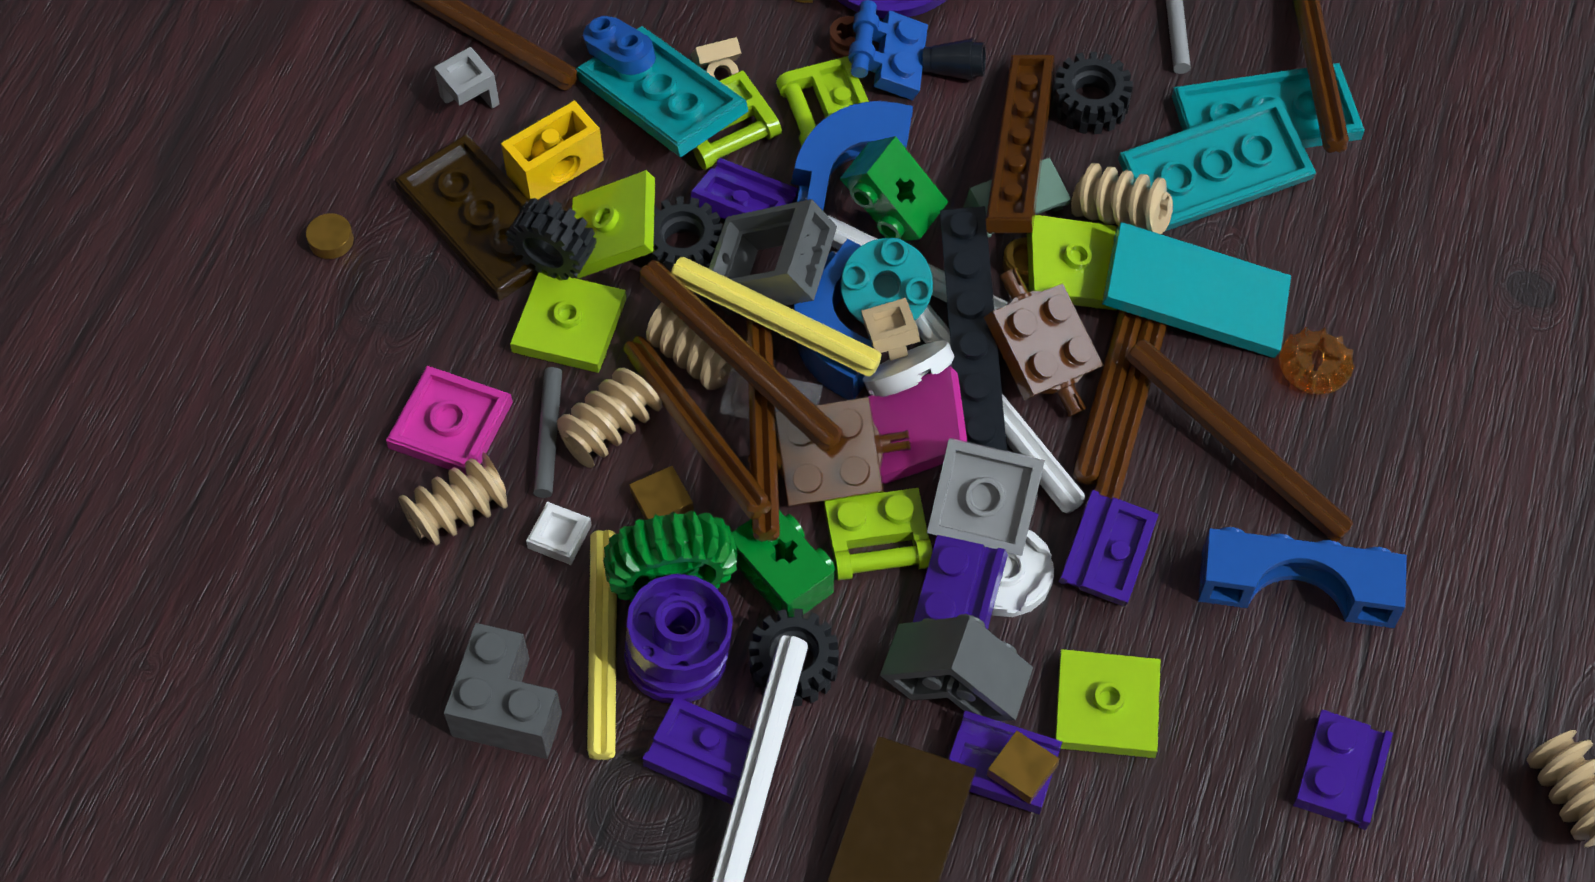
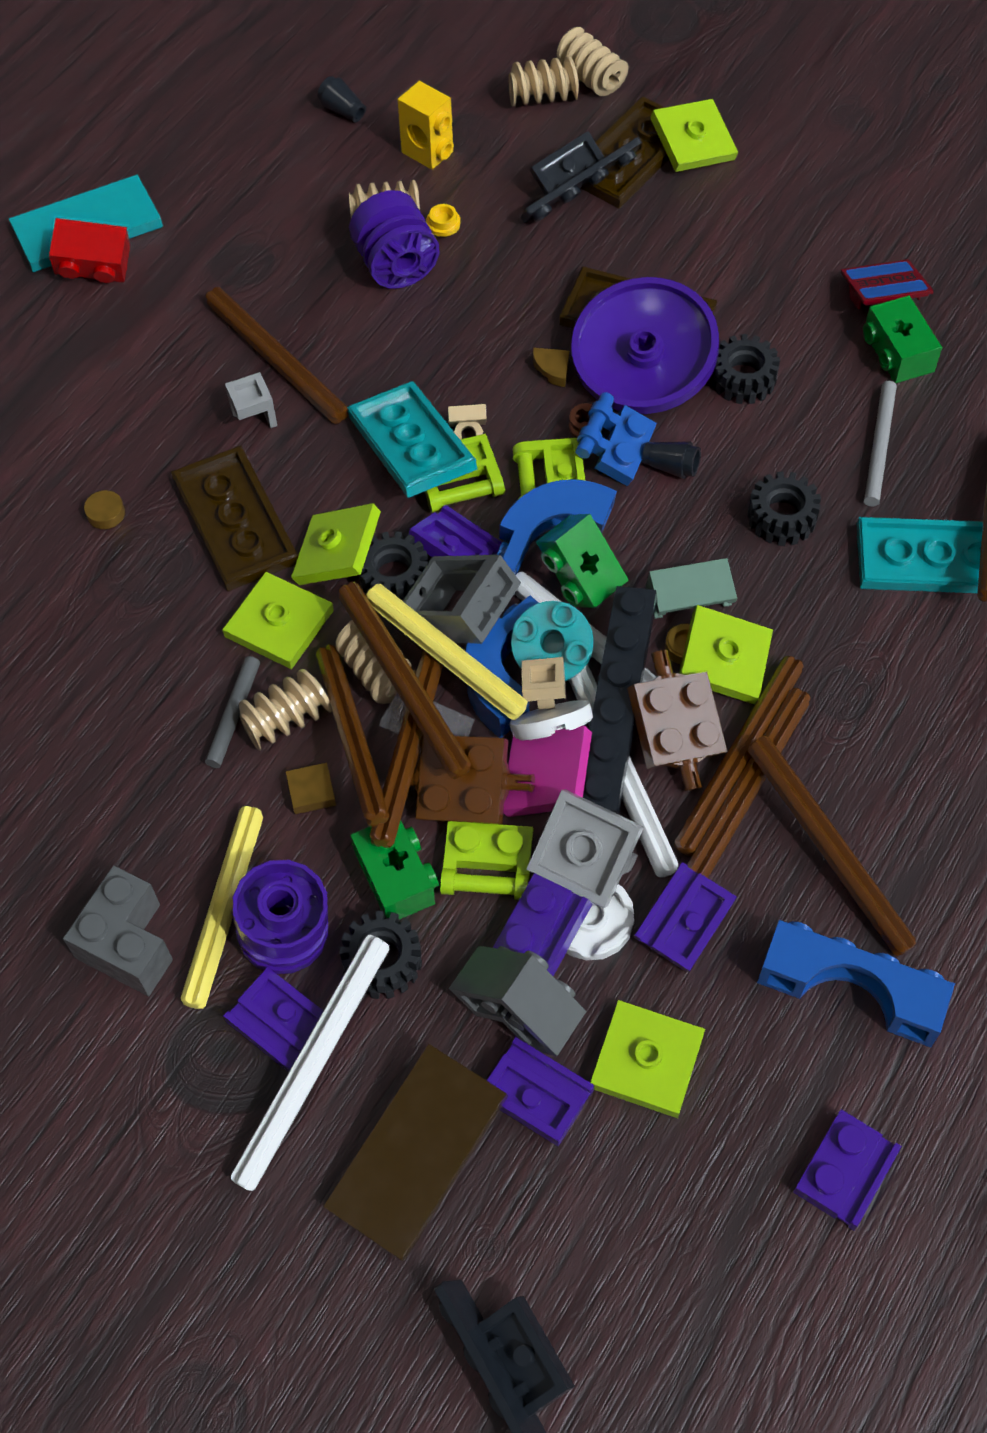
camera: 15 degrees right, 0 degrees up
(449, 420) = (154, 686): dark pink tile -> none
(454, 500) = (134, 755): tan piece -> none
(551, 238) = (276, 546): black tyre -> none
(552, 151) = (304, 473): yellow brick -> none
(559, 533) = (216, 801): white tile -> none
(619, 45) = (386, 393): blue plate -> none
(669, 546) = (294, 835): green gear -> none
(1020, 145) = (704, 542): reddish brown tile -> none
(1023, 767) = (550, 1101): pearl gold tile -> none
(1122, 200) = (783, 607): tan piece -> none
(1197, 290) = (829, 701): teal tile -> none
(1224, 161) = (878, 593): teal tile -> none
(1297, 364) = (934, 800): clear orange gear -> none

